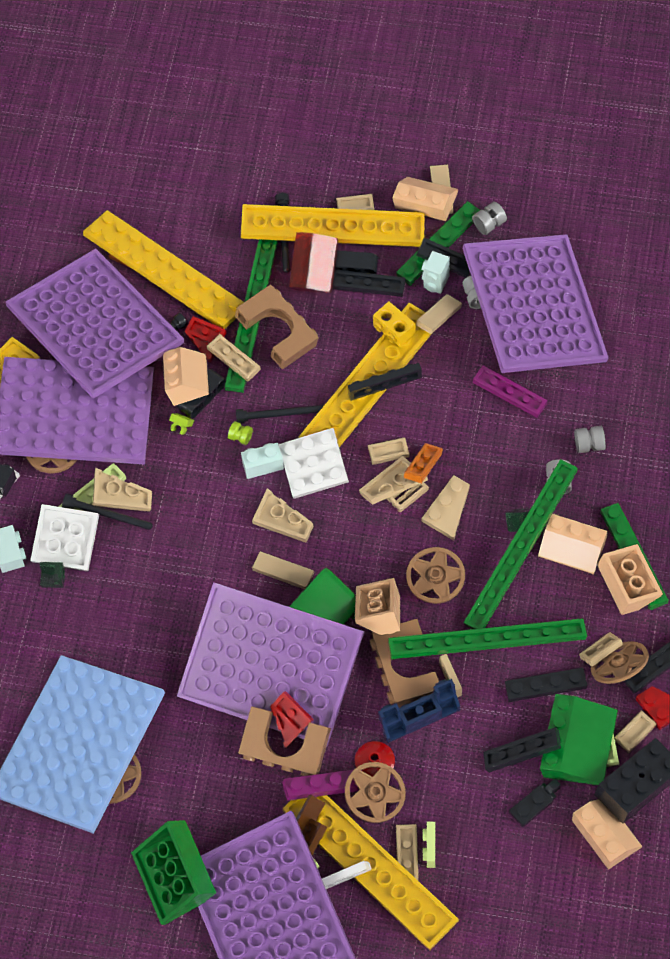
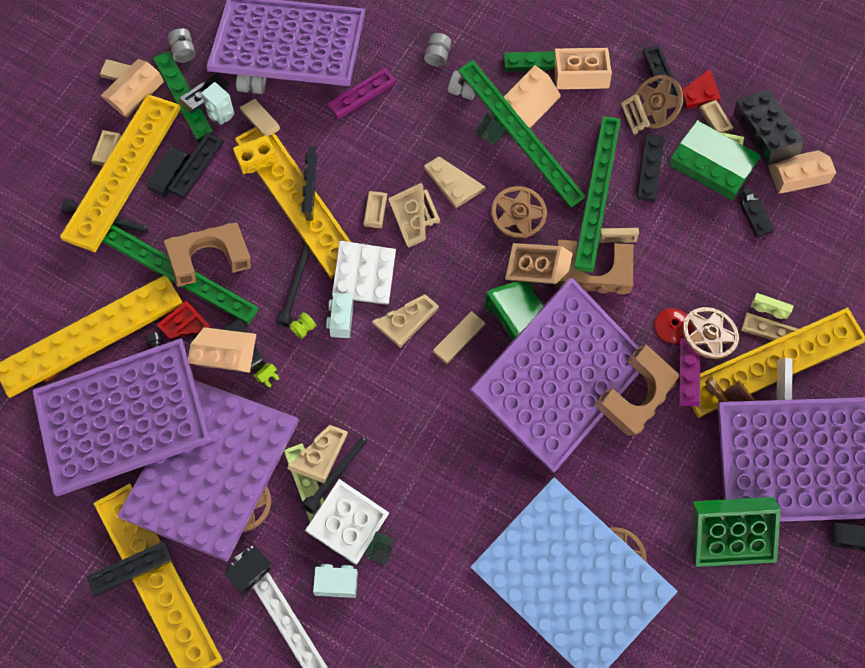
camera: 75 degrees left, 5 degrees up
(233, 357) = (221, 303): tan tile -> none
(290, 718) = (619, 376): red wing -> none
(313, 262) = (157, 197): clear red slope -> none
(423, 463) = (406, 182): orange tile -> none
(426, 710) = (648, 268): dark blue bracket -> none
(522, 749) = (714, 201): black plate -> none

